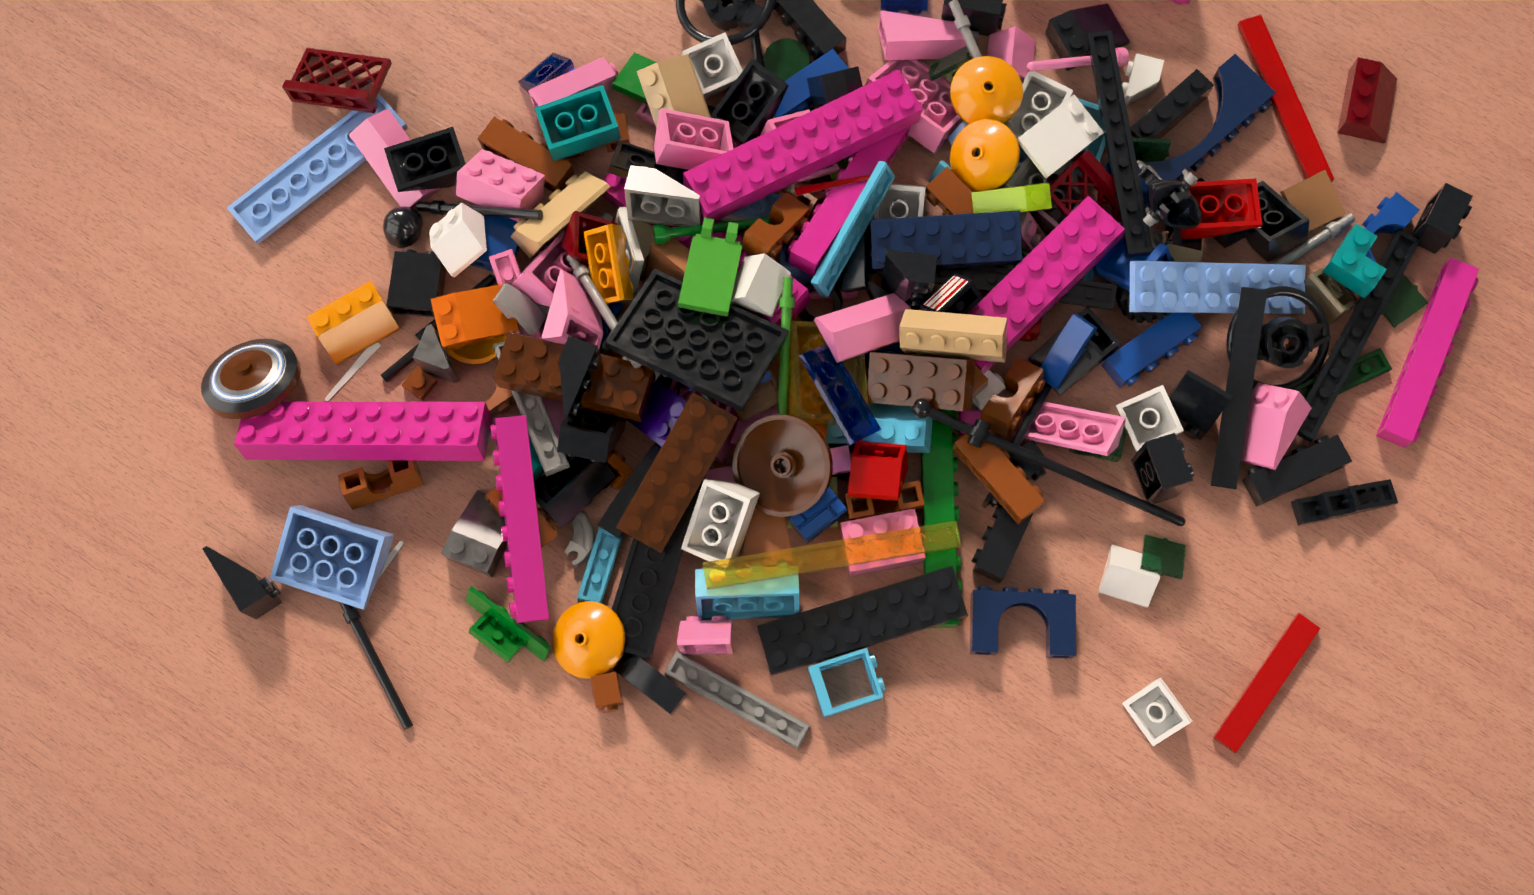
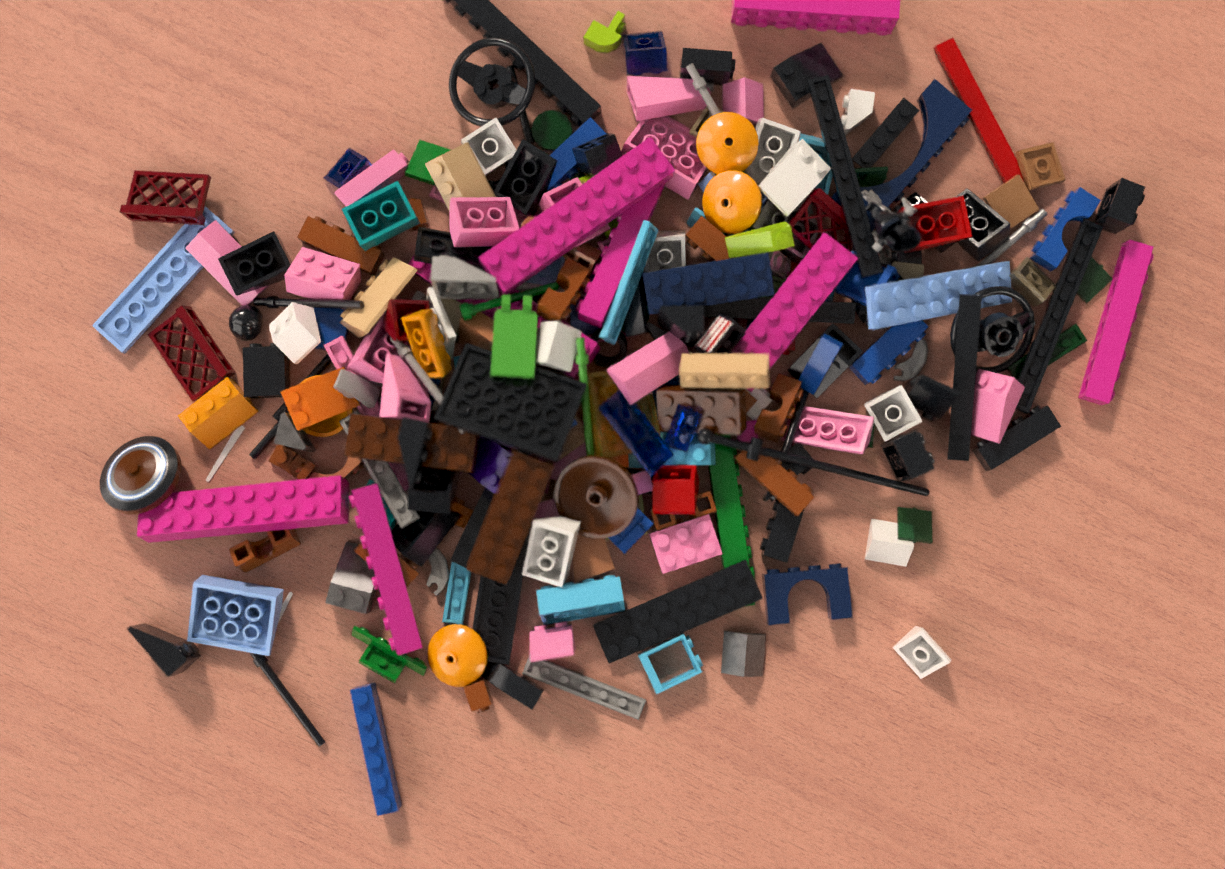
camera: 10 degrees left, 10 degrees up
(348, 237) = (202, 340): none -> dark red fence
(439, 393) = (300, 468): none -> dark orange bracket
(473, 739) = (376, 749): none -> blue brick
(822, 186) = (588, 252): red sticker -> none
(831, 555) = (646, 565): clear yellow plate -> none
(895, 397) = (682, 428): none -> clear blue slope
(937, 685) = (743, 654): none -> flat silver slope
(949, 63) = (692, 119): piece -> none
(1121, 53) = (838, 91): bright pink piece -> none
(1173, 373) = (913, 366): none -> light grey piece
(1266, 683) = (1006, 615): red tile -> none
(1344, 502) = (1056, 459): black slope -> none
(1351, 166) = (1040, 166): none -> medium nougat tile
(1351, 266) = (1046, 256): teal brick -> none
(1367, 101) = (1049, 106): dark red slope -> none

